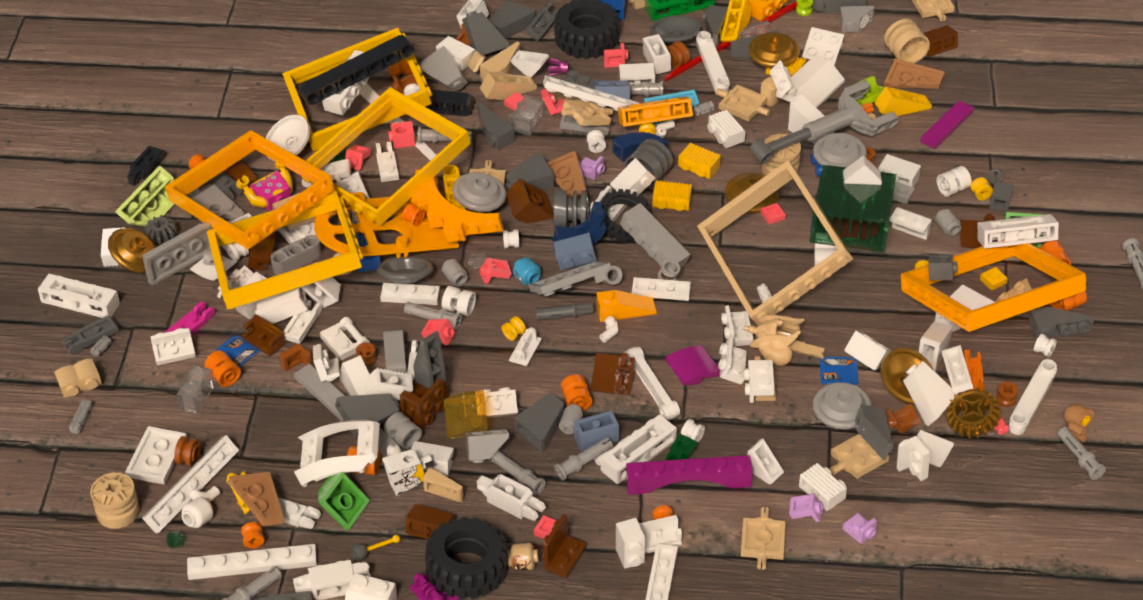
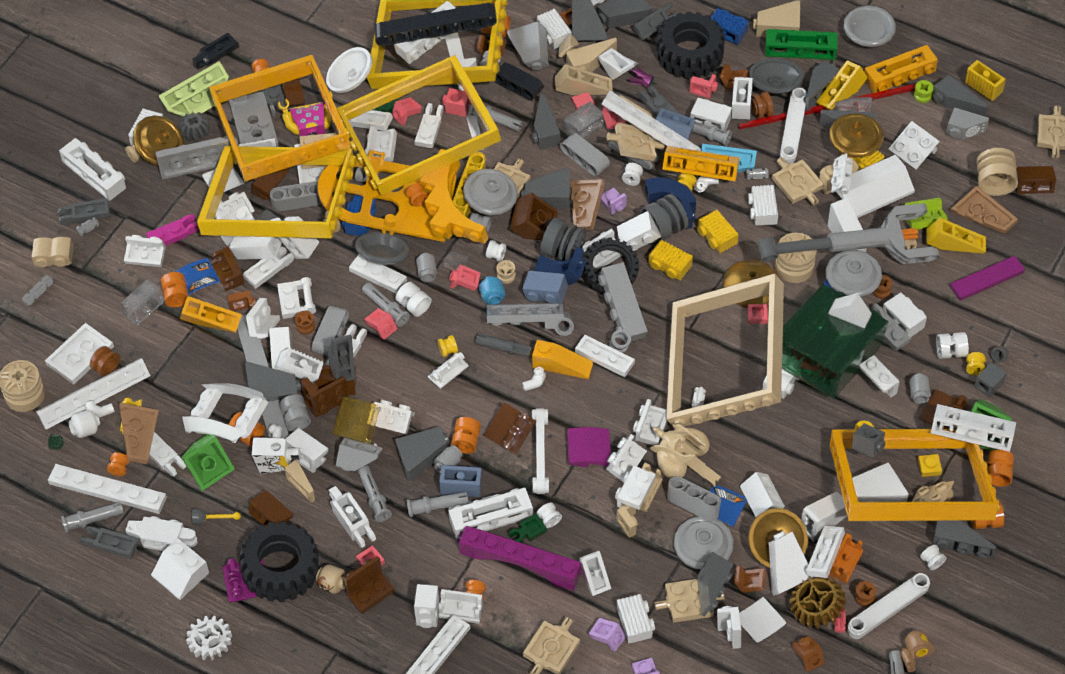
camera: 25 degrees right, 10 degrees up
(113, 269) = (132, 153): none -> tan wheel
(269, 378) = (209, 315): none -> light orange slope
(531, 250) = (502, 269): none -> tan wheel
(544, 139) = (584, 154): none -> light grey beam
(636, 43) = (727, 76): none -> dark orange bracket
(765, 411) = (627, 520): none -> tan bracket
(814, 371) = (693, 498): none -> light grey beam
(990, 456) = (809, 652): none -> dark orange bracket

